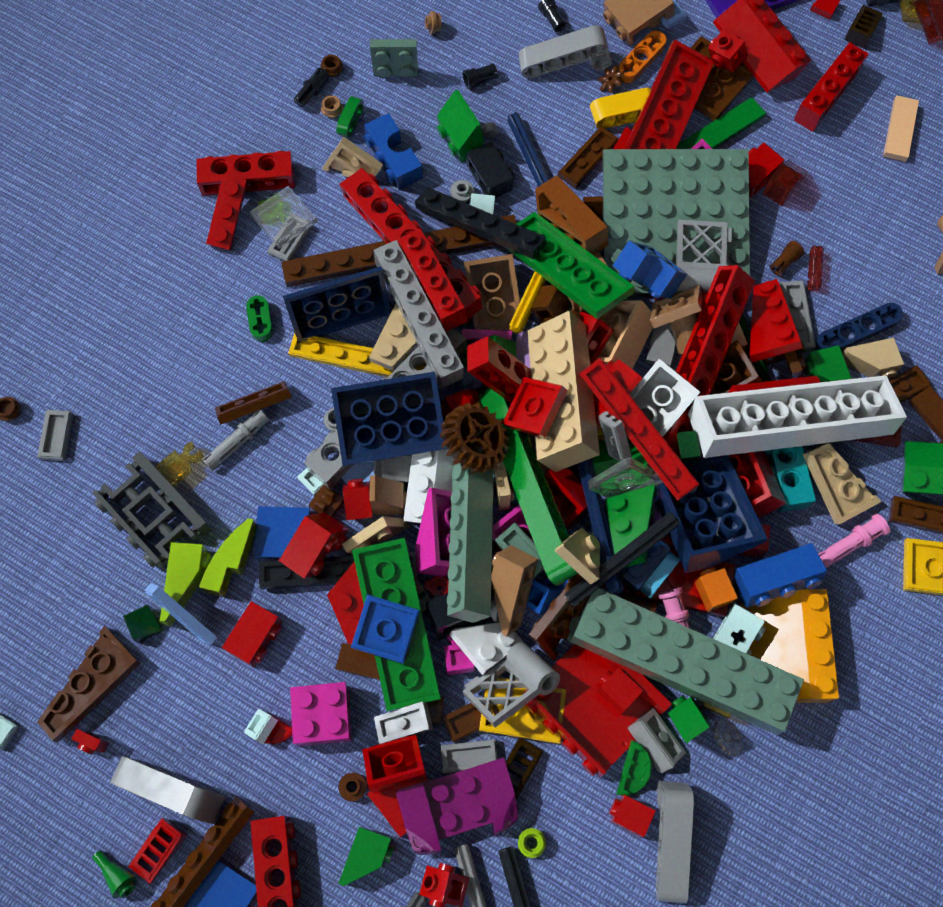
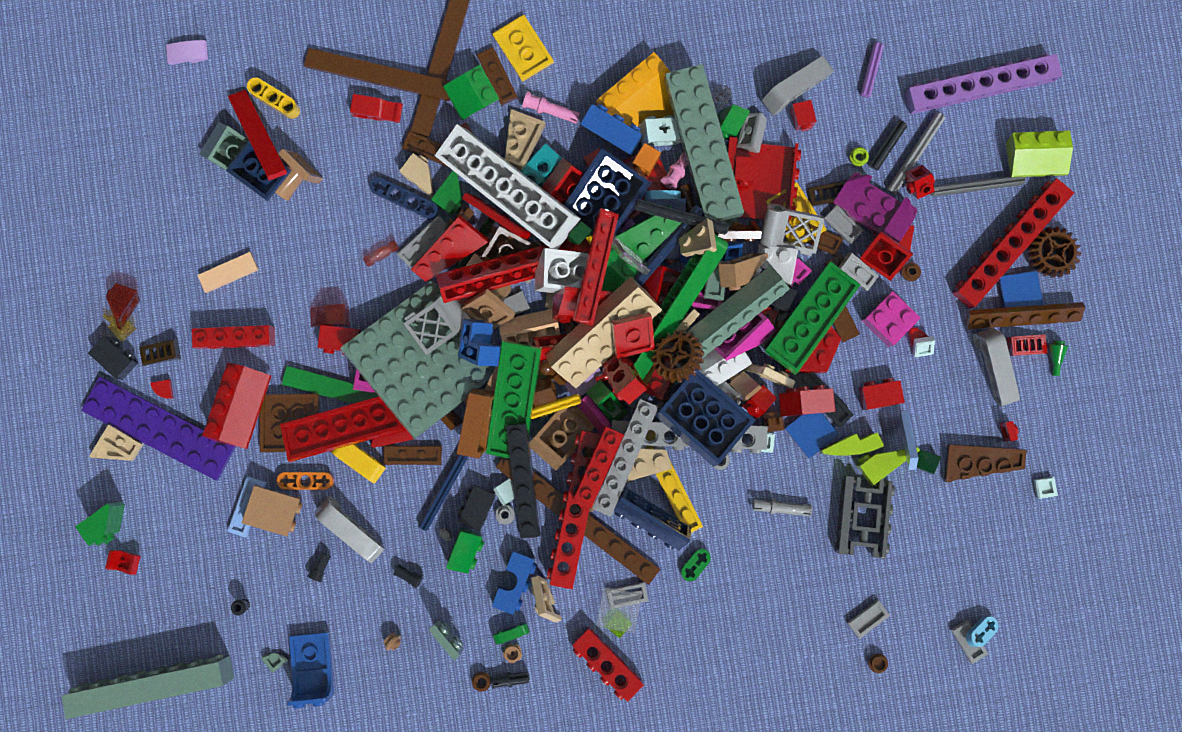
camera: 130 degrees left, 15 degrees up
(176, 466) = (826, 526): clear yellow plate -> none
(226, 212) = (646, 648): red plate -> none
(252, 402) = (752, 517): reddish brown tile -> none
(366, 855) = (938, 234): green slope -> none
(385, 628) = (822, 319): blue tile -> none
(611, 79) = (341, 486): reddish brown plant -> none
(614, 437) = (609, 277): light grey tile -> none
(635, 771) = (777, 131): green tile -> none
(727, 51) = (268, 415): red brick -> none
(789, 255) = (384, 275): reddish brown pin -> none

